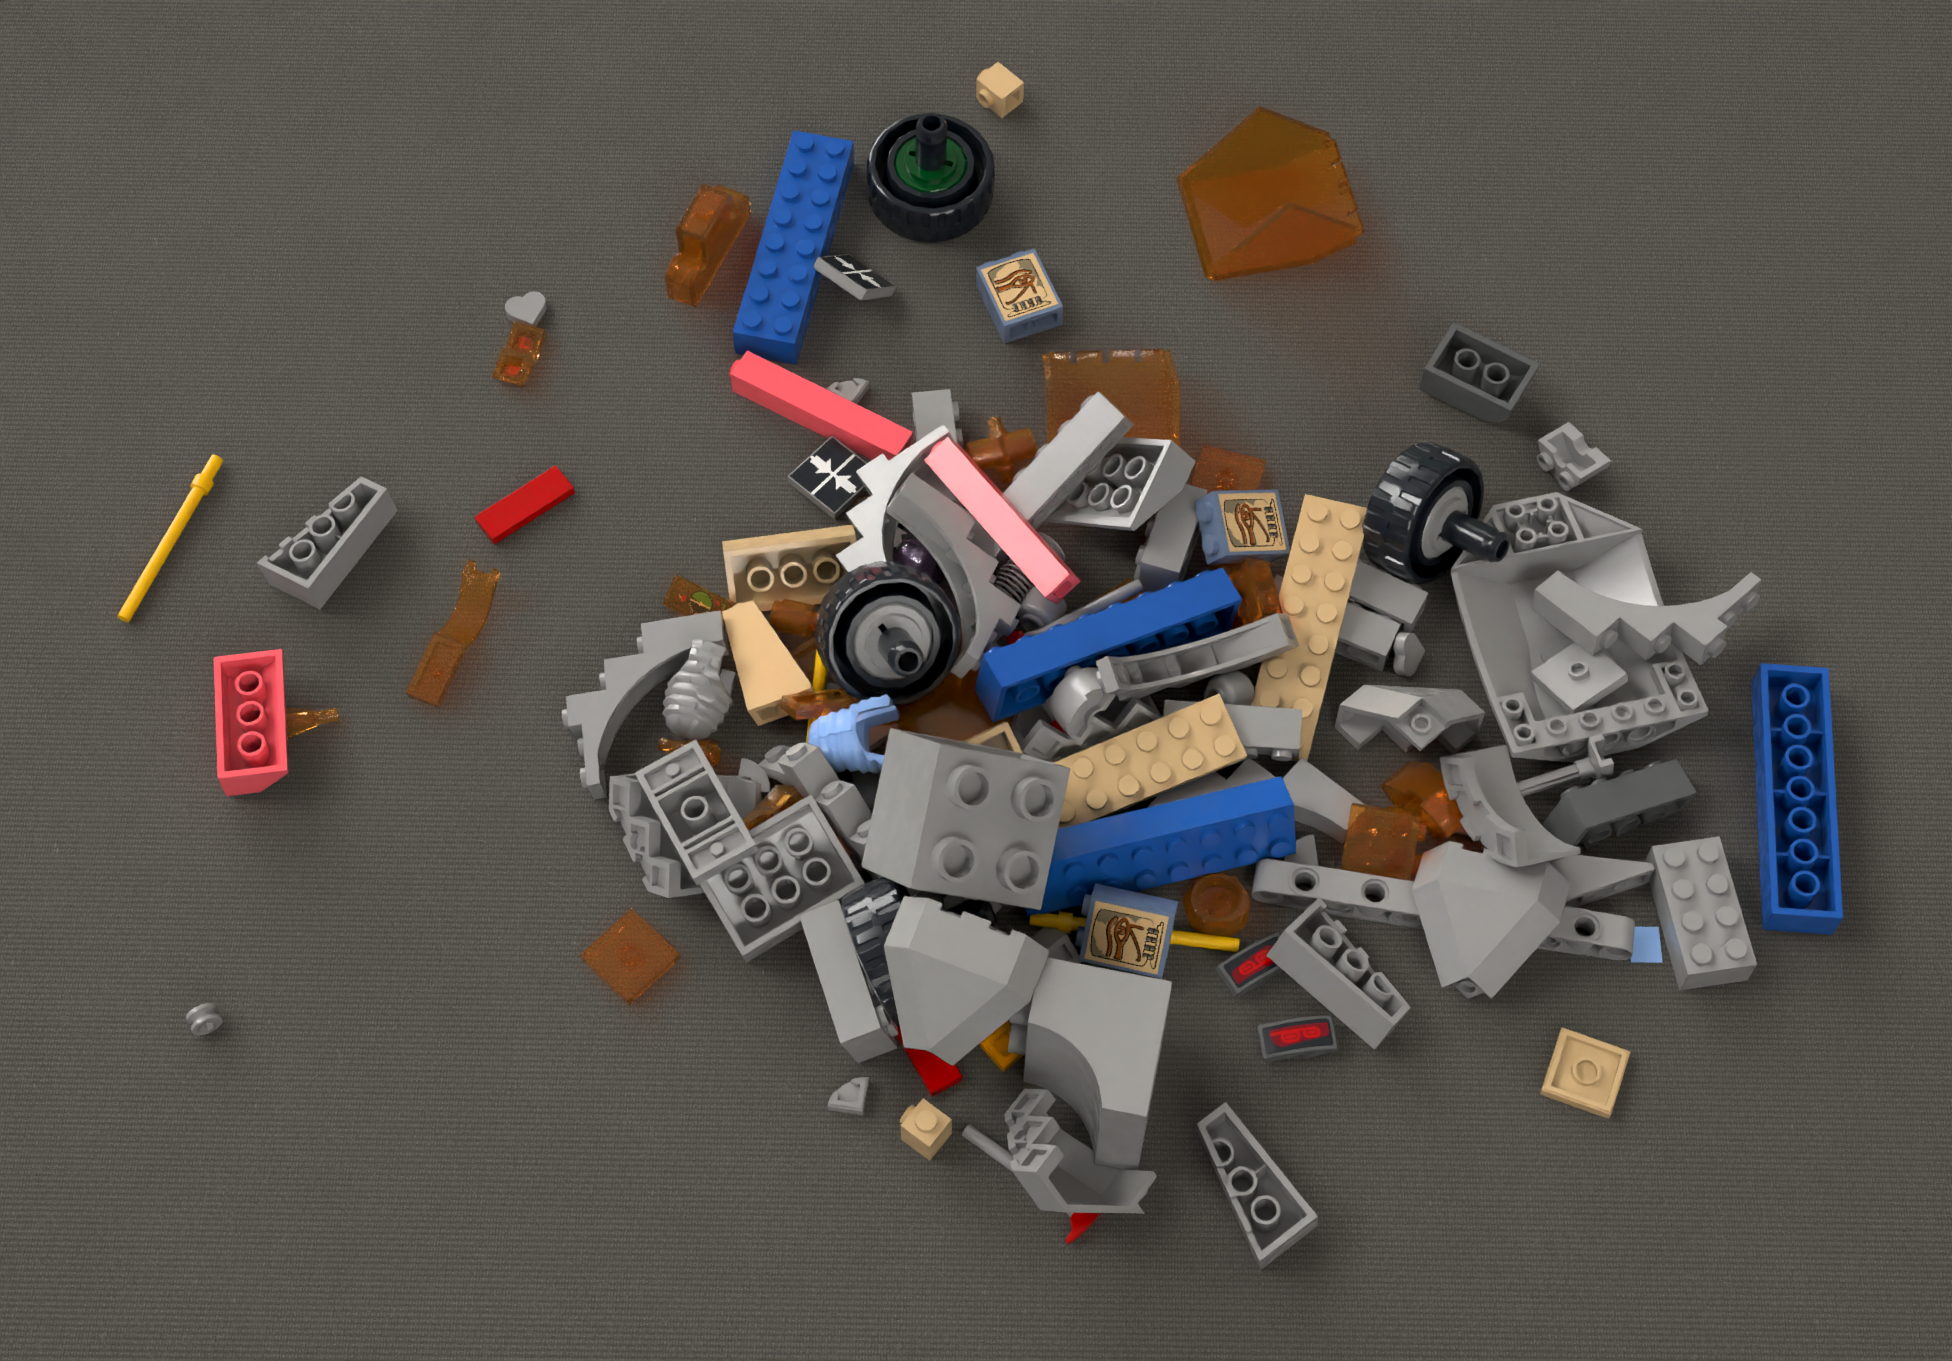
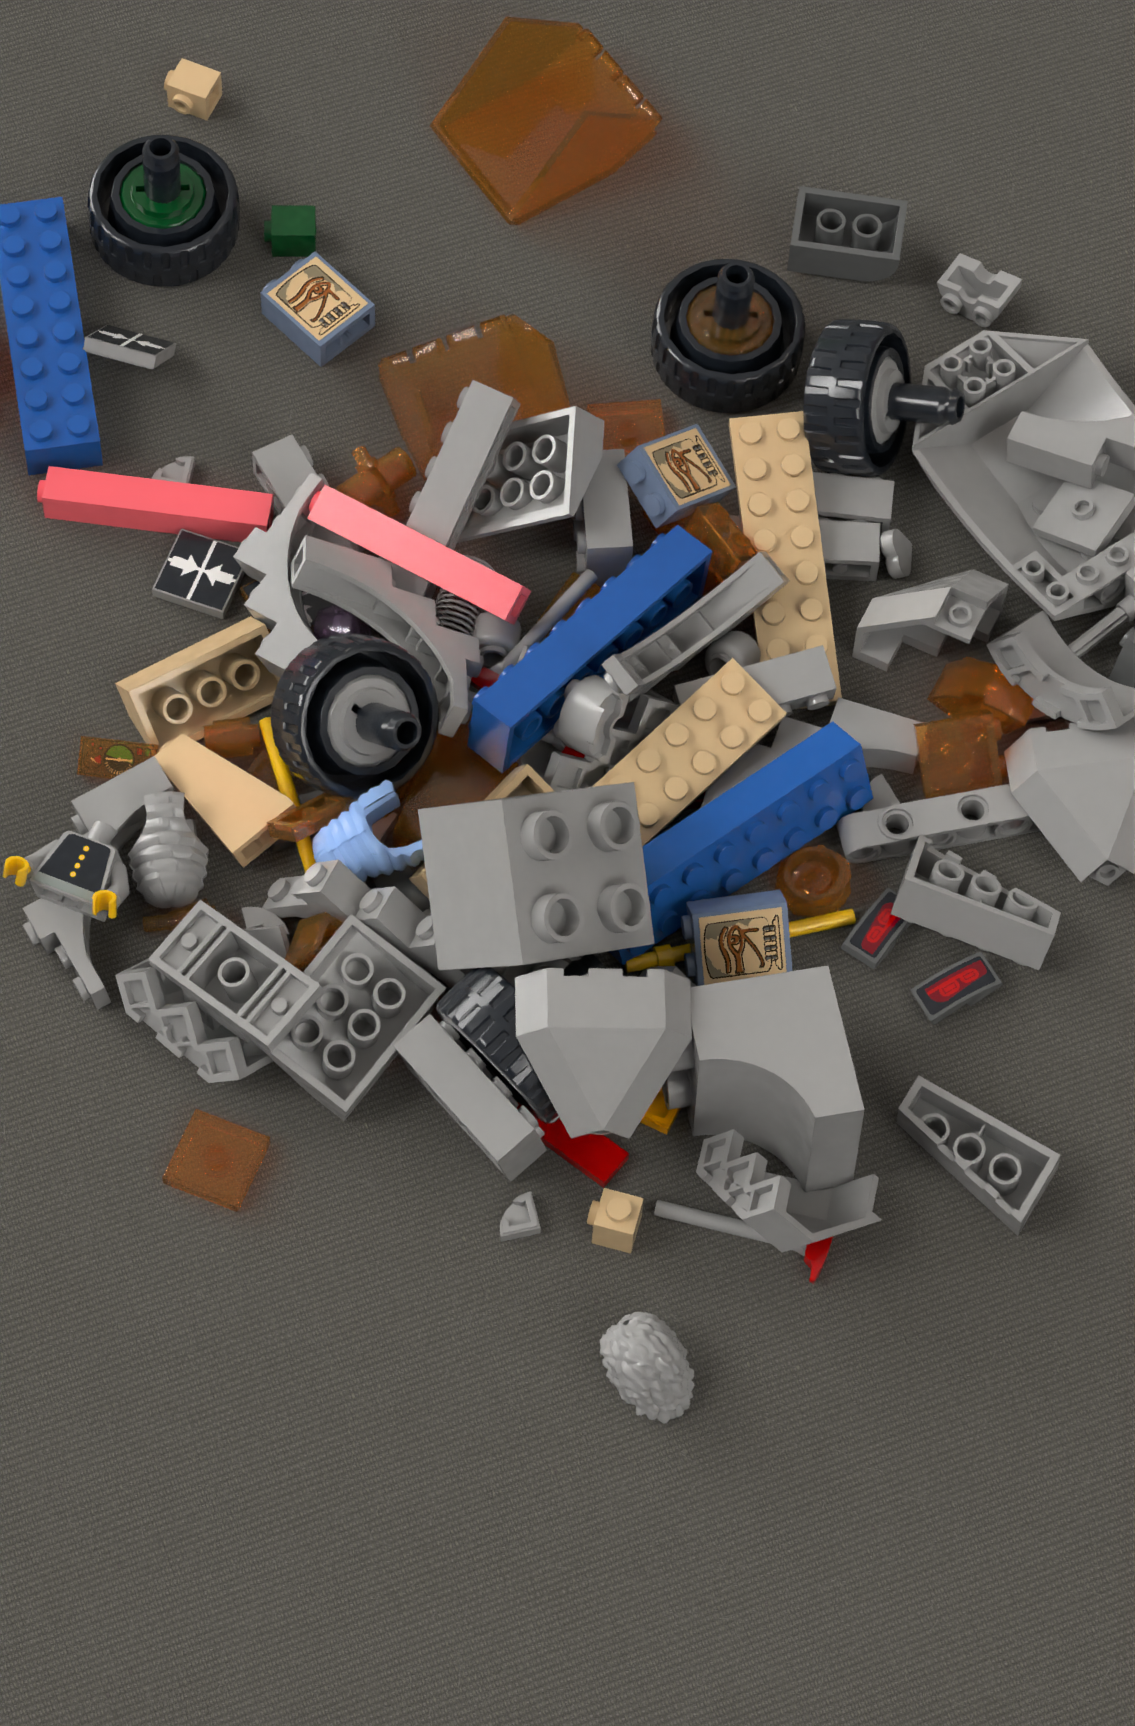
camera: 25 degrees left, 0 degrees up
(614, 681) = (76, 872): none -> torso
(897, 1262) = (648, 1366): none -> light grey piece
(1026, 226) = (291, 230): none -> dark green brick
(1341, 425) = (727, 335): none -> black wheel

